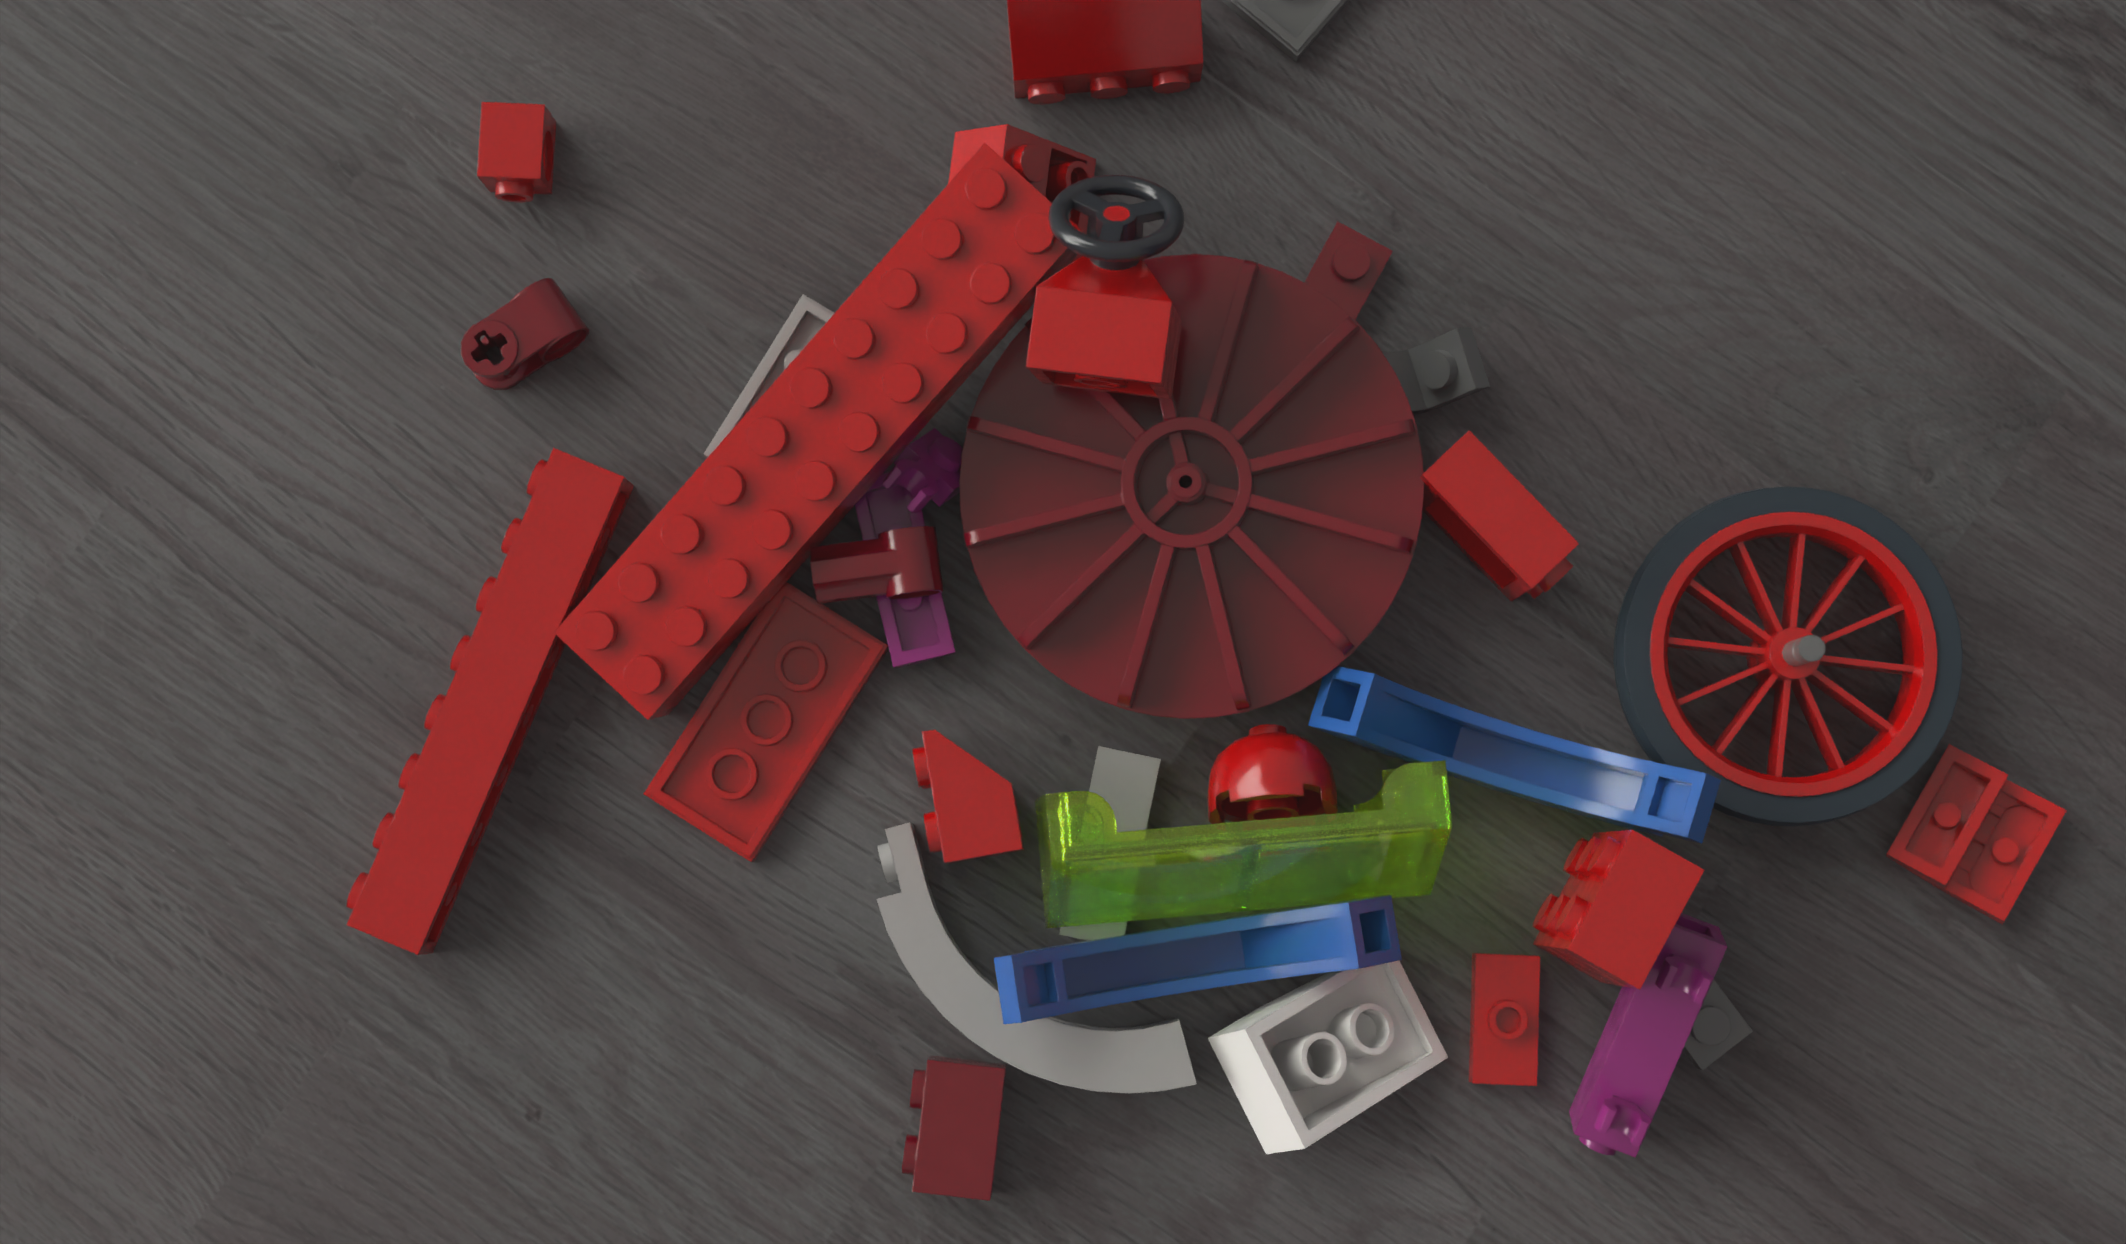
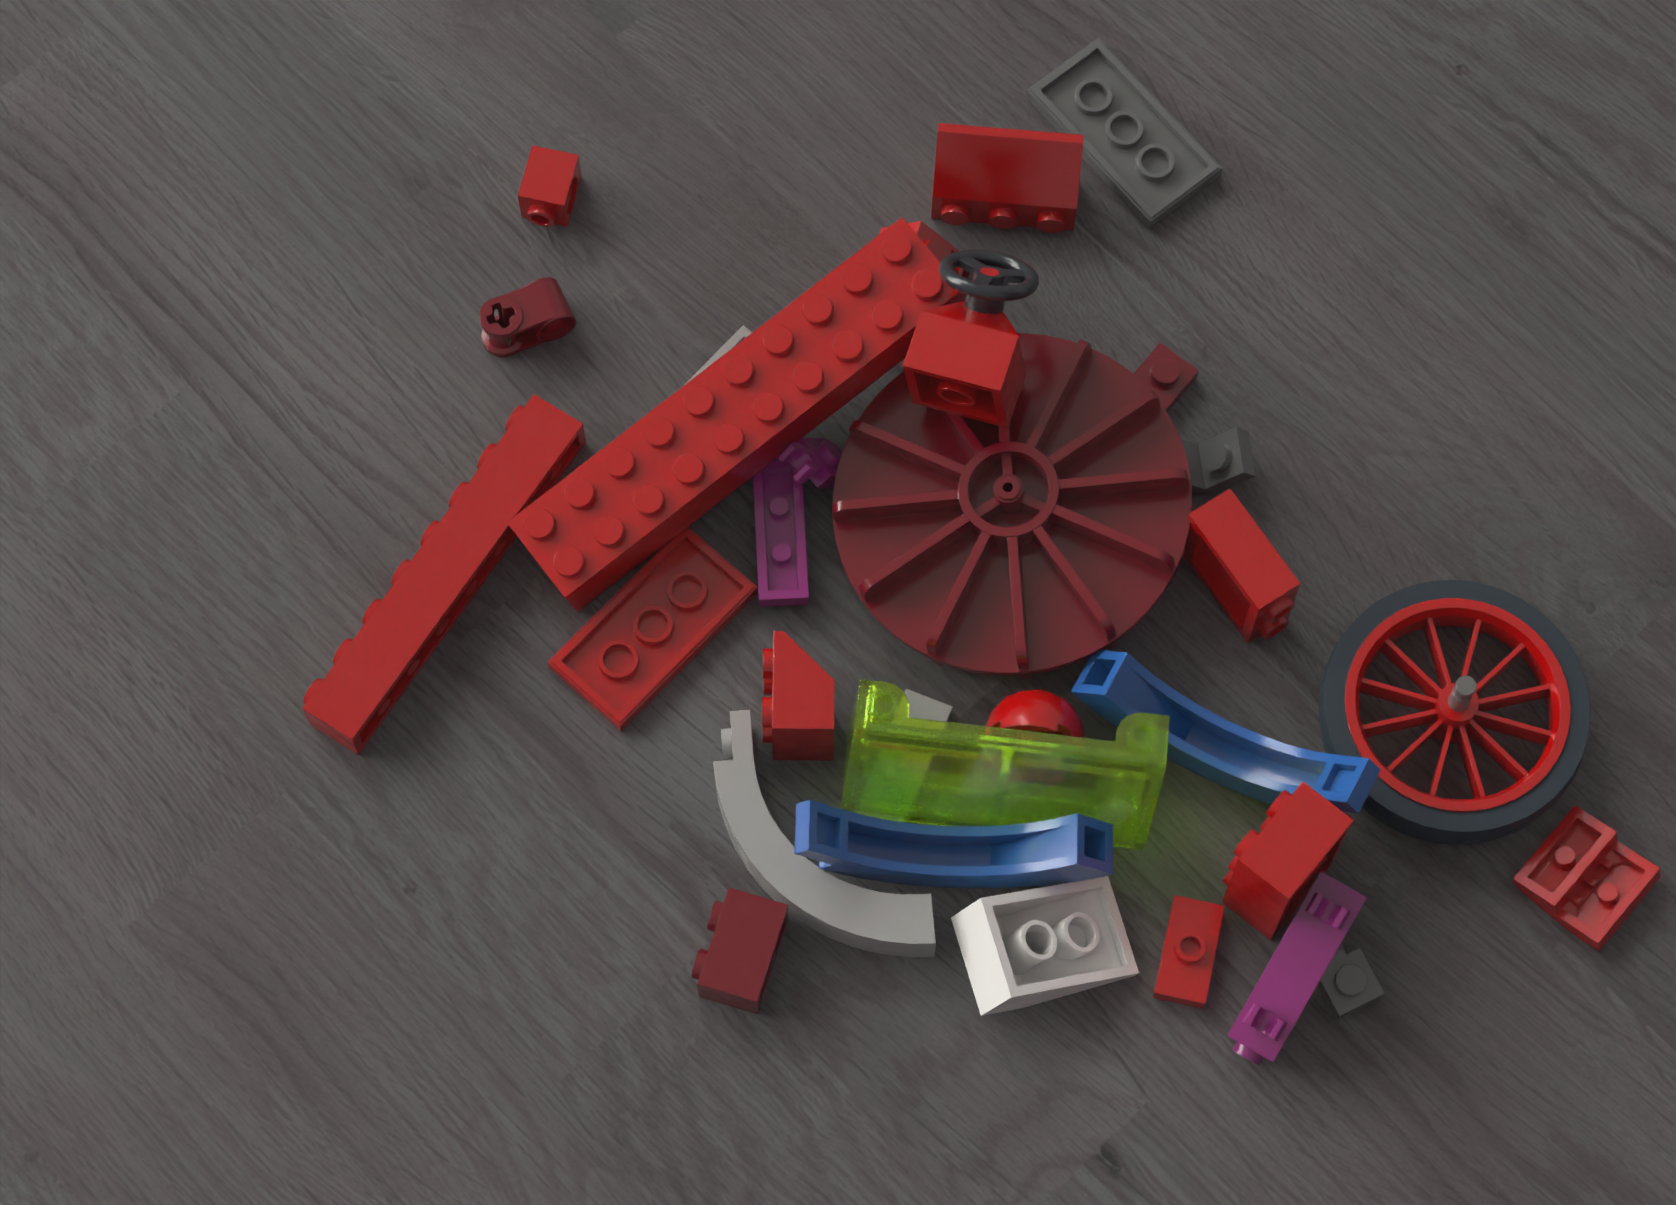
camera: 10 degrees right, 15 degrees down
(897, 564) = (775, 521): dark red piece -> none

